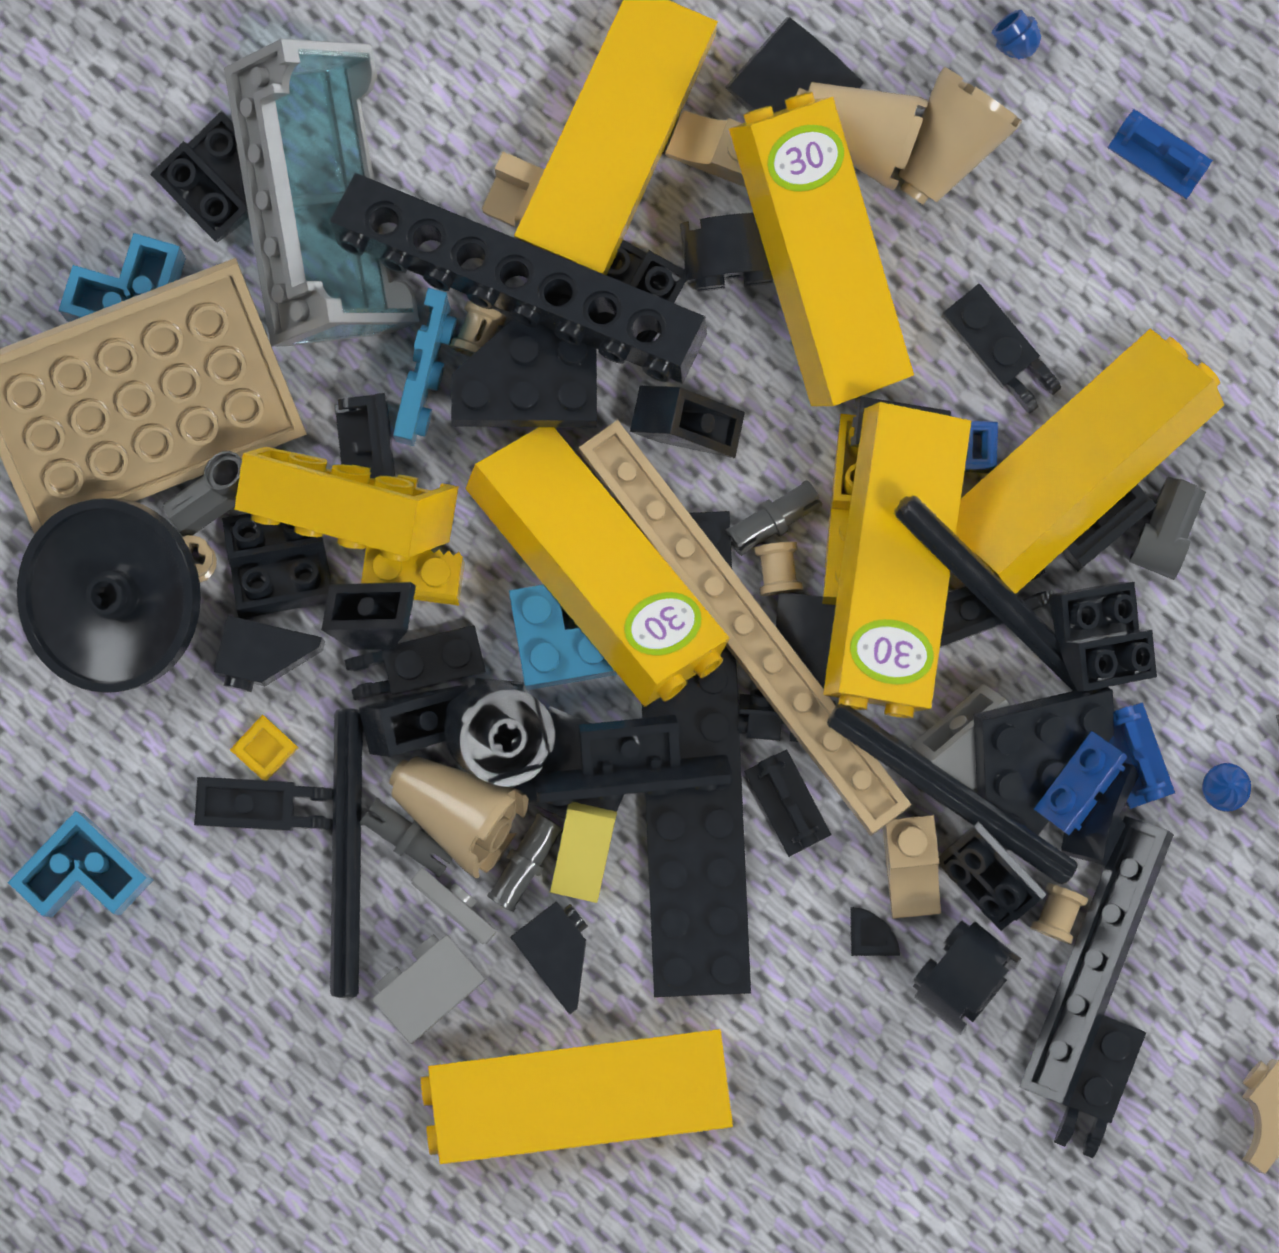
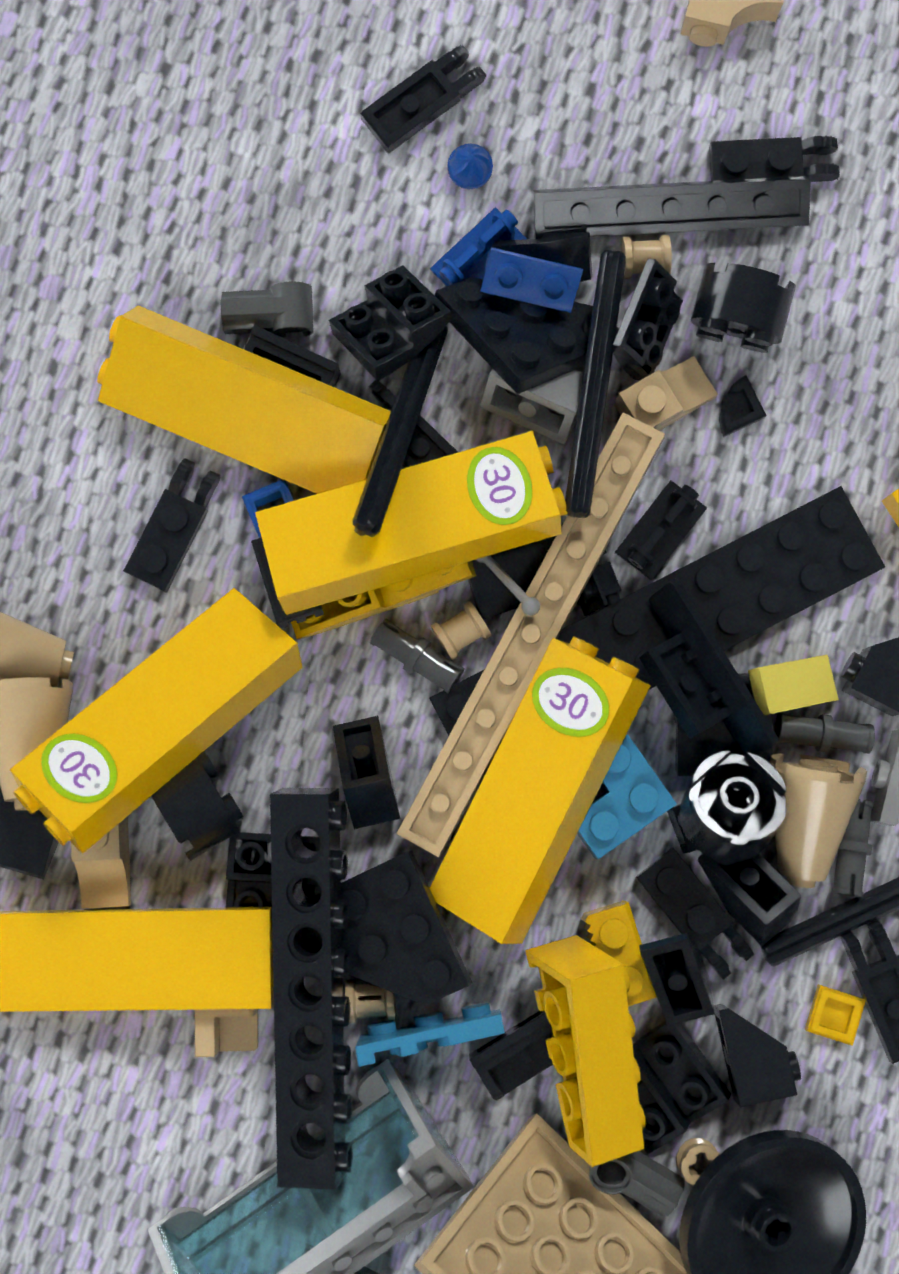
camera: 110 degrees left, 0 degrees up
(769, 633) = (530, 605): none -> light grey hinge

